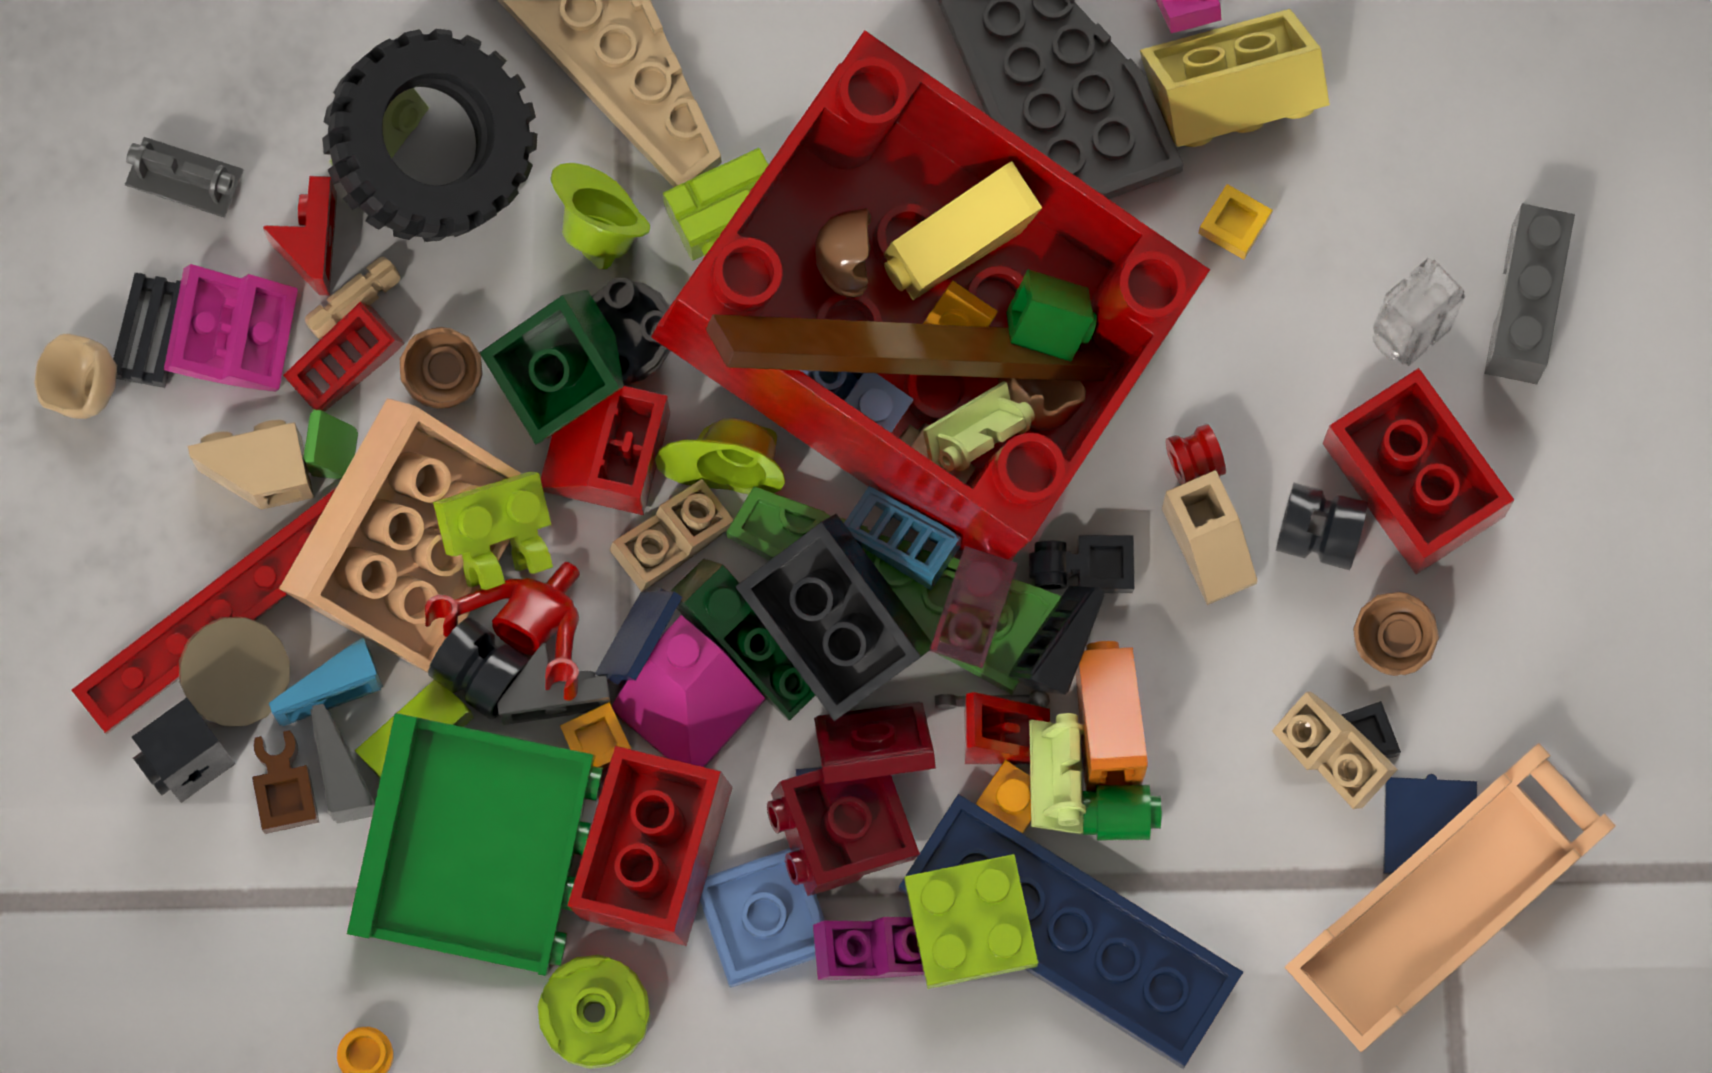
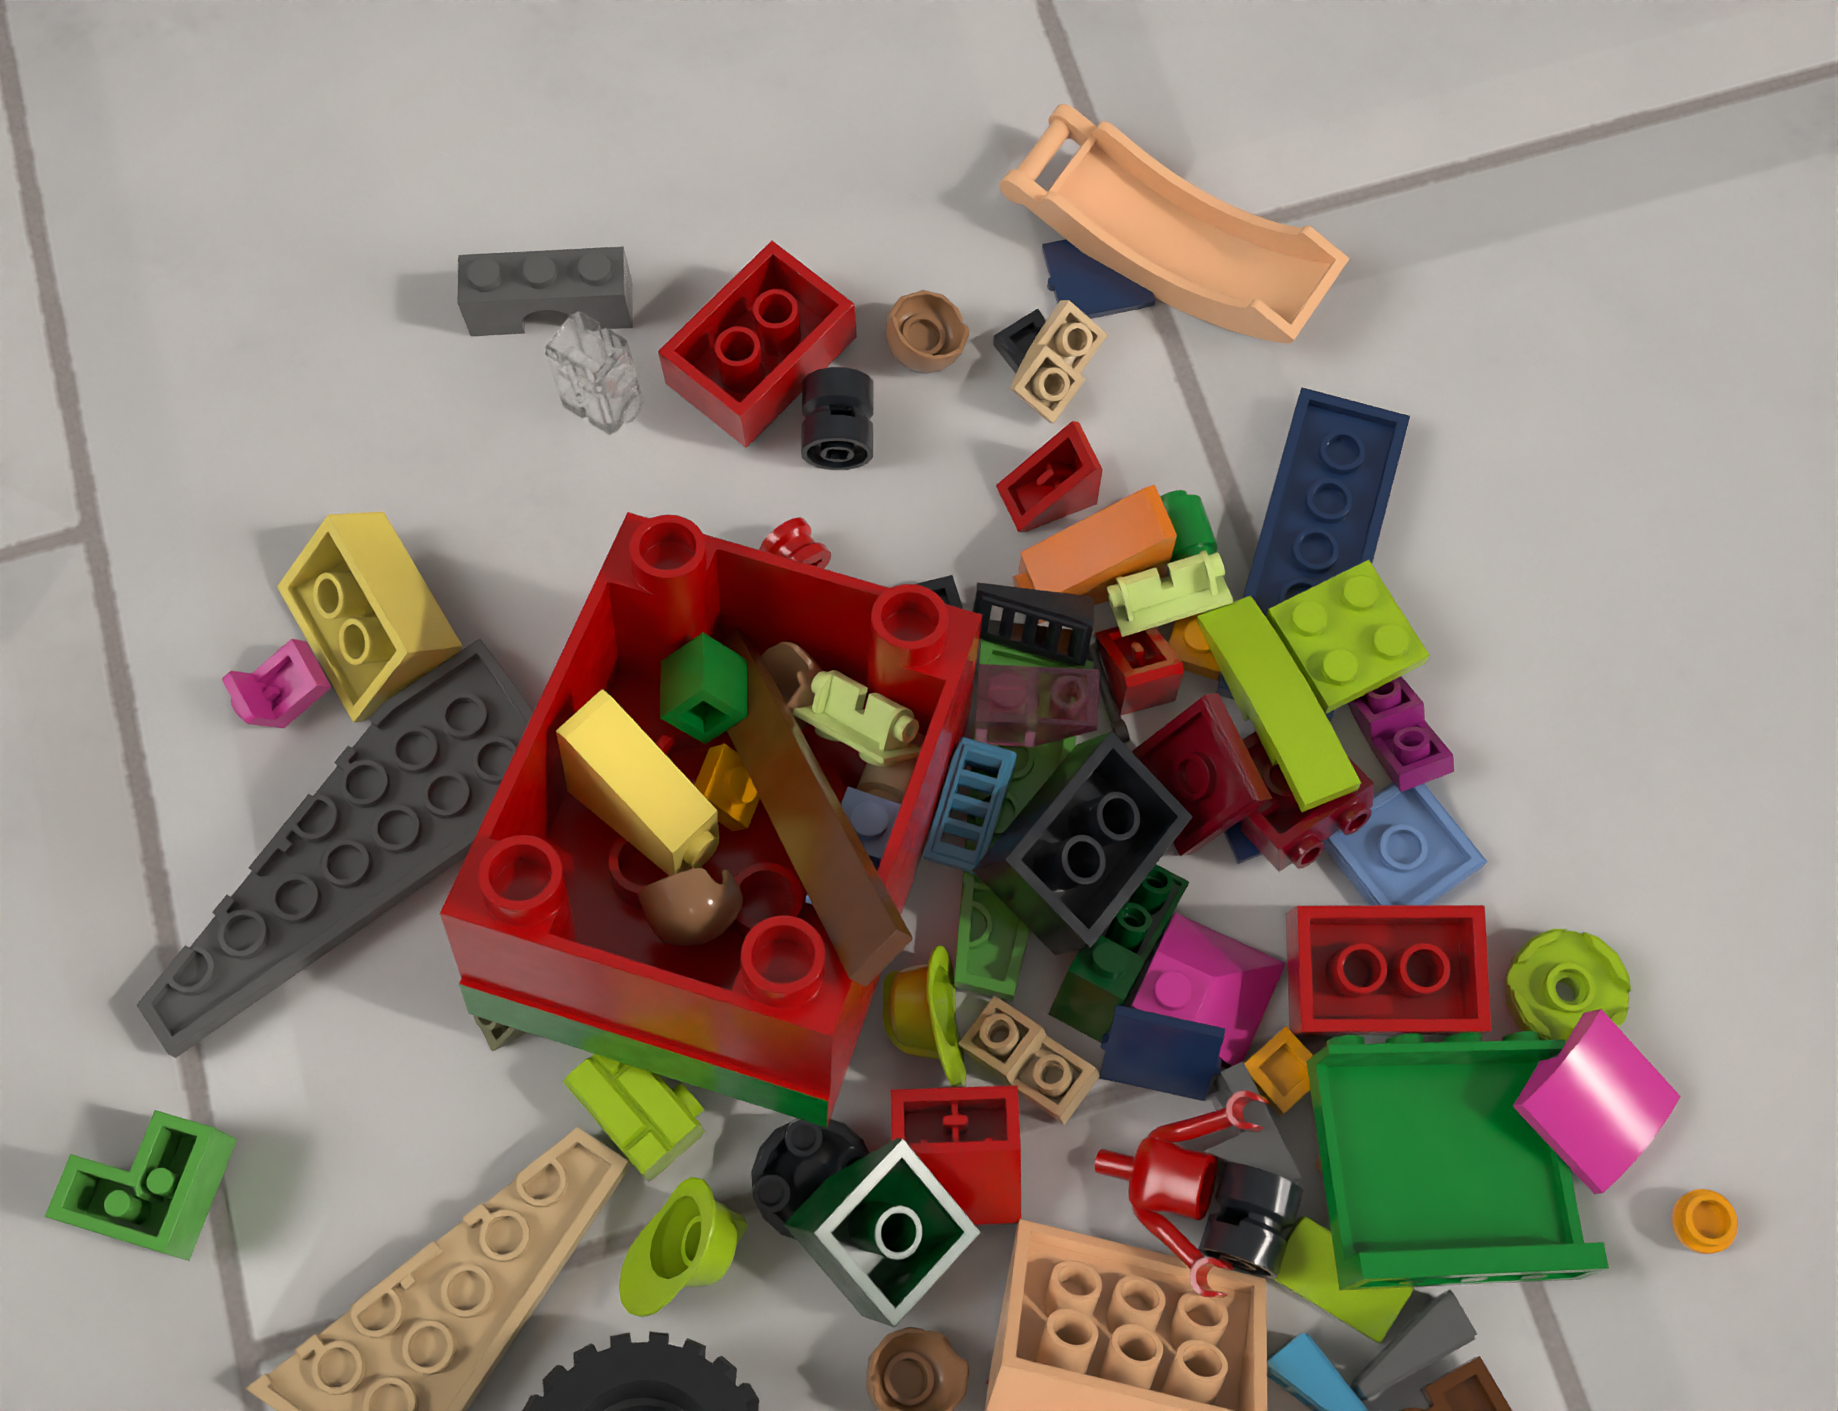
camera: 105 degrees left, 5 degrees down
(487, 991) = (1597, 1101): none -> dark pink slope
(493, 514) = (1078, 1254): lime plate -> none
(920, 826) = (1278, 703): none -> lime slope
(1206, 708) = (1053, 481): none -> red slope
(1210, 537) = (875, 517): tan slope -> none
(1235, 221) = (530, 577): yellow plate -> none

